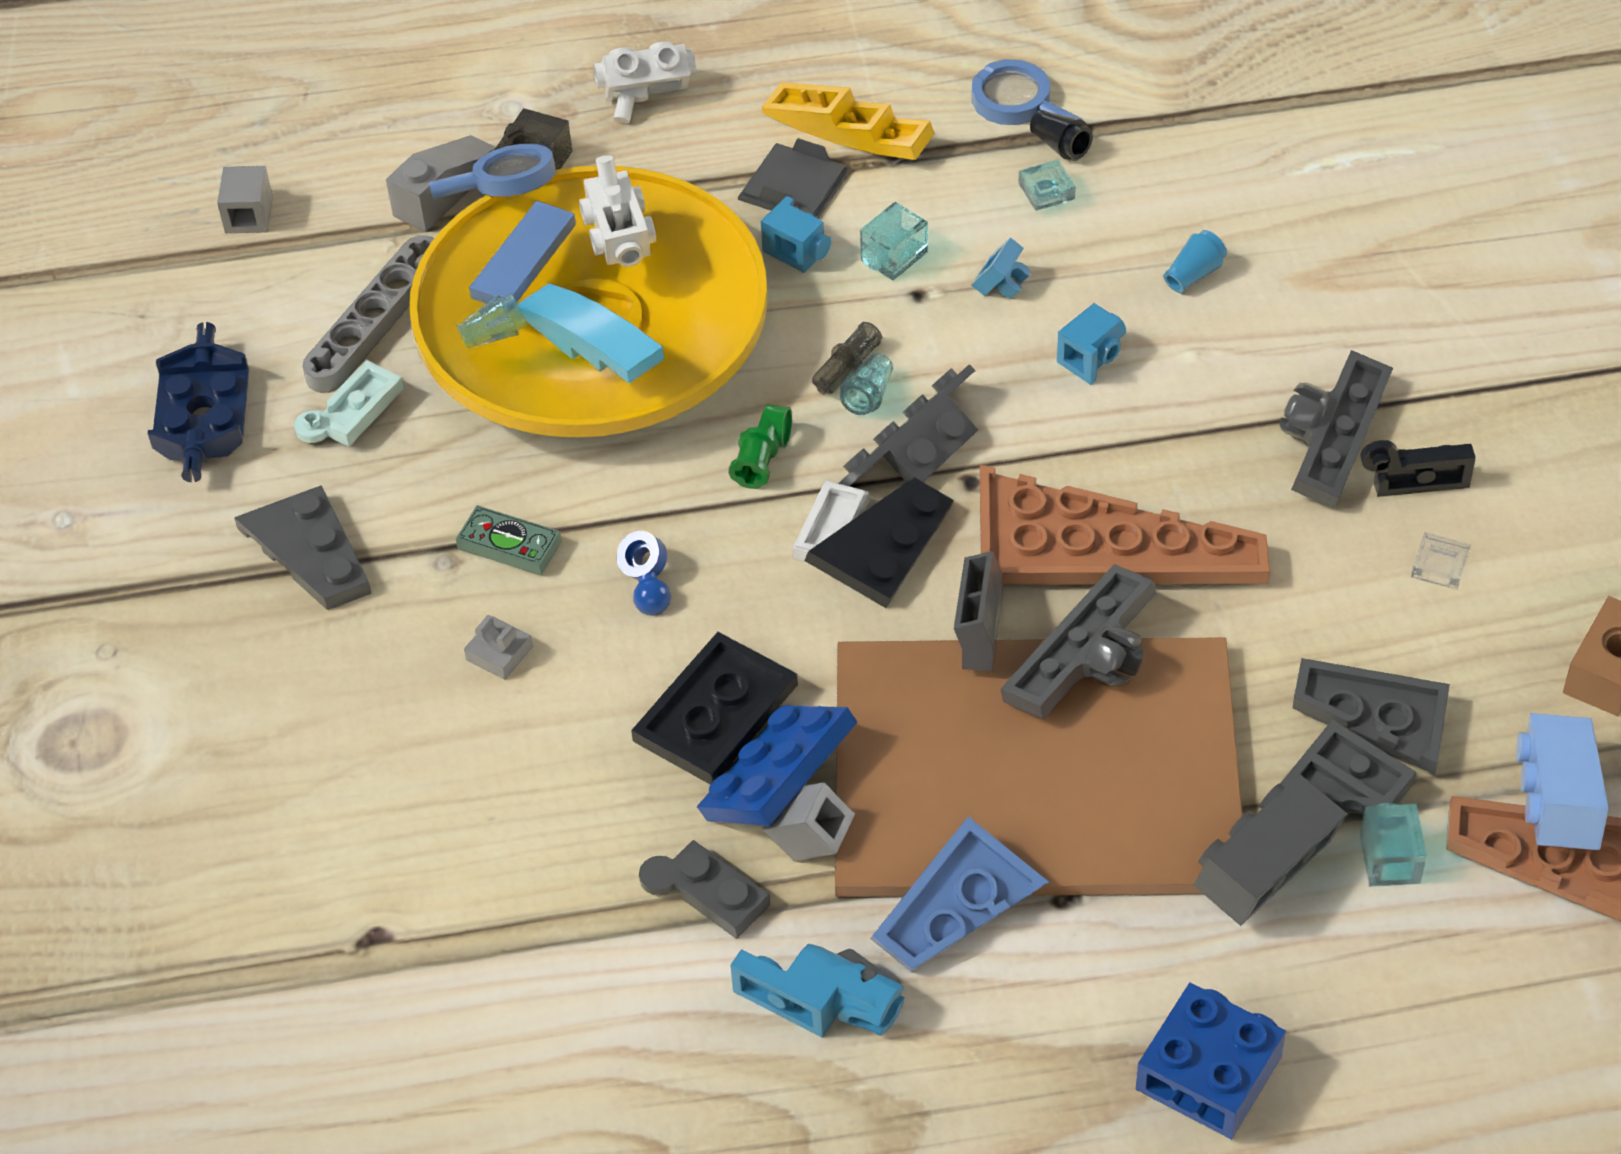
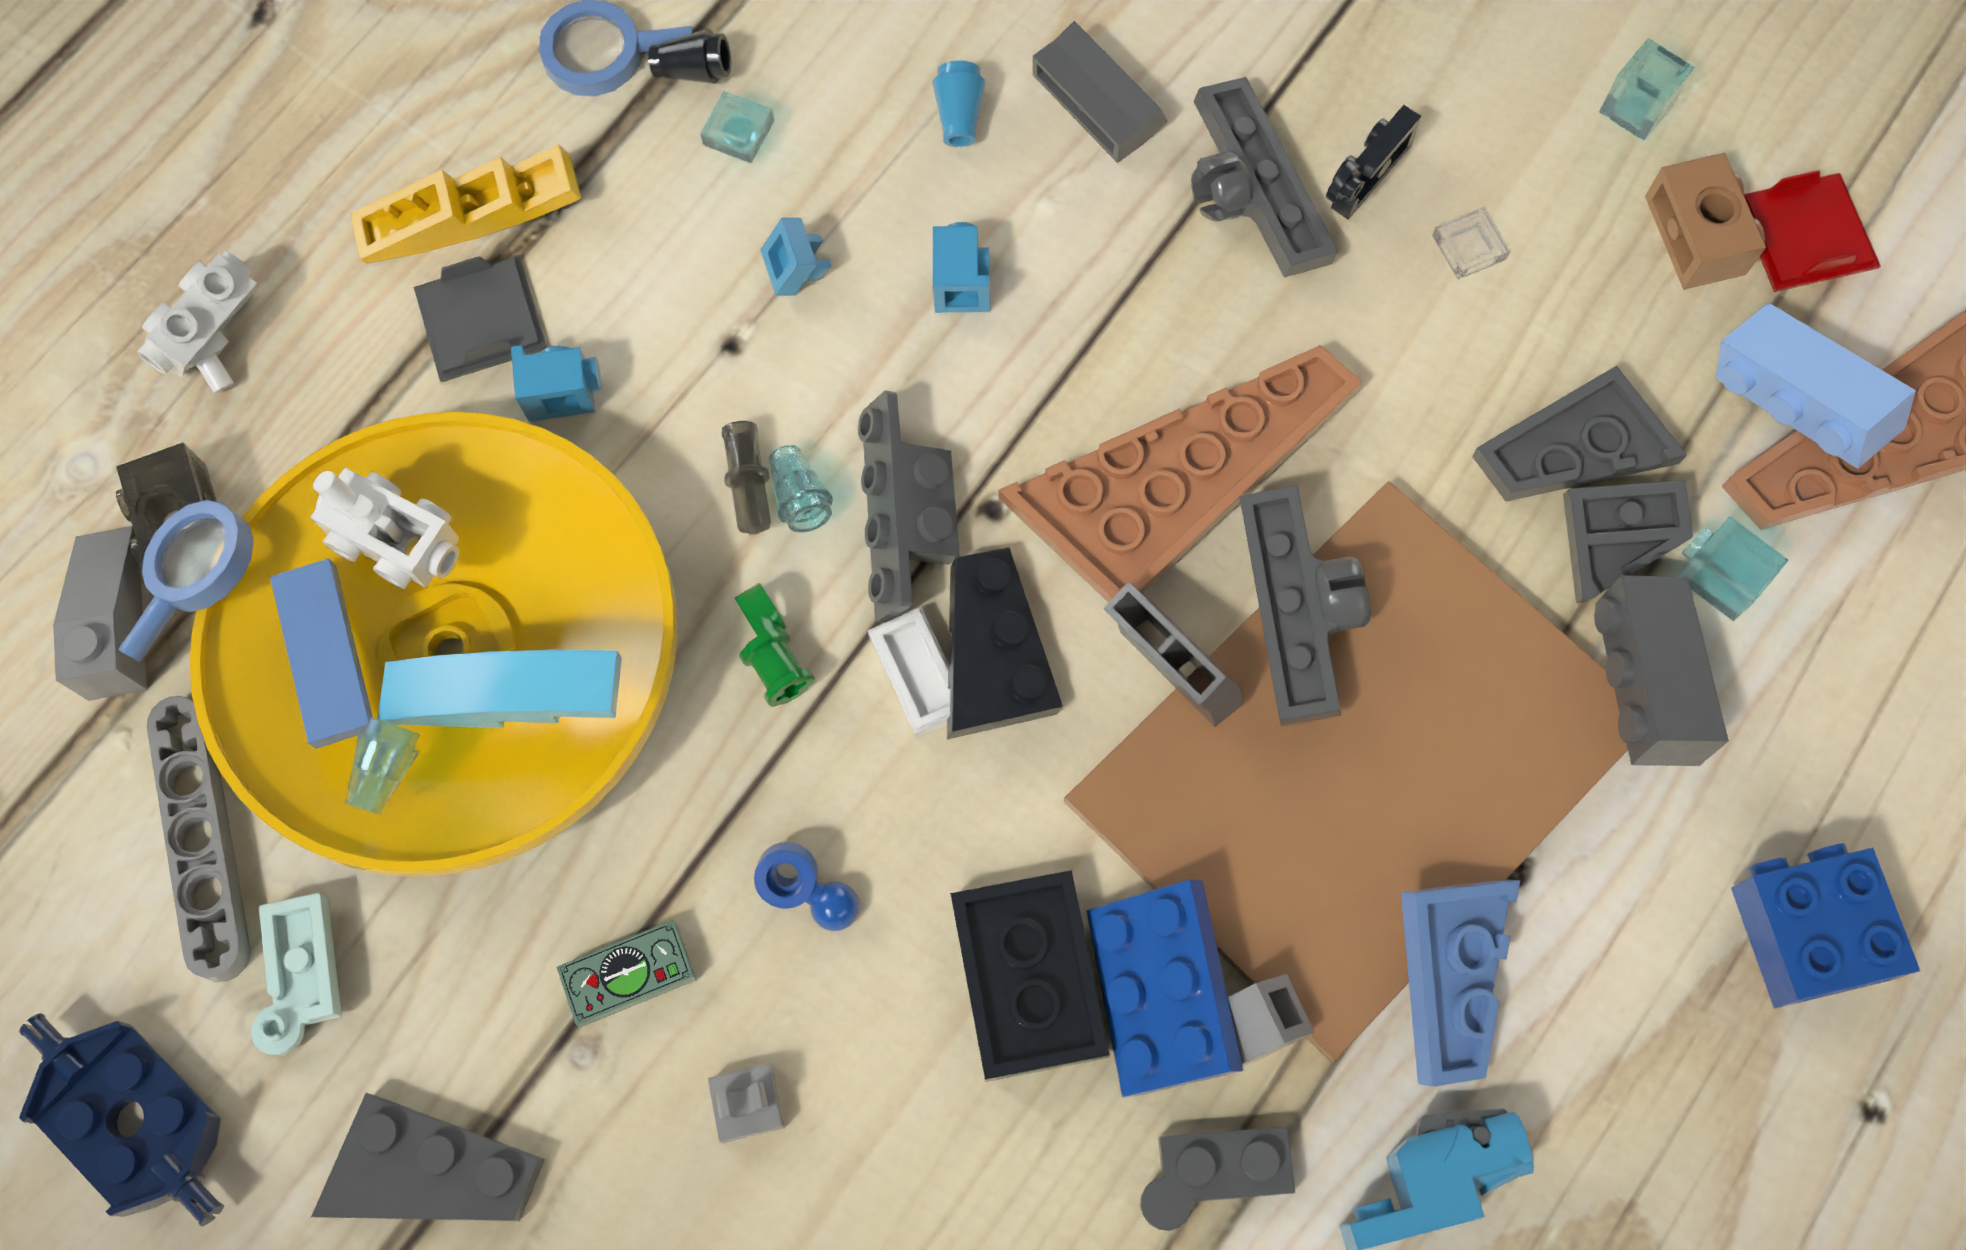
camera: 45 degrees left, 20 degrees up
(894, 241) = (658, 308): clear light blue brick -> none
(1291, 315) = (1097, 92): none -> dark grey piece

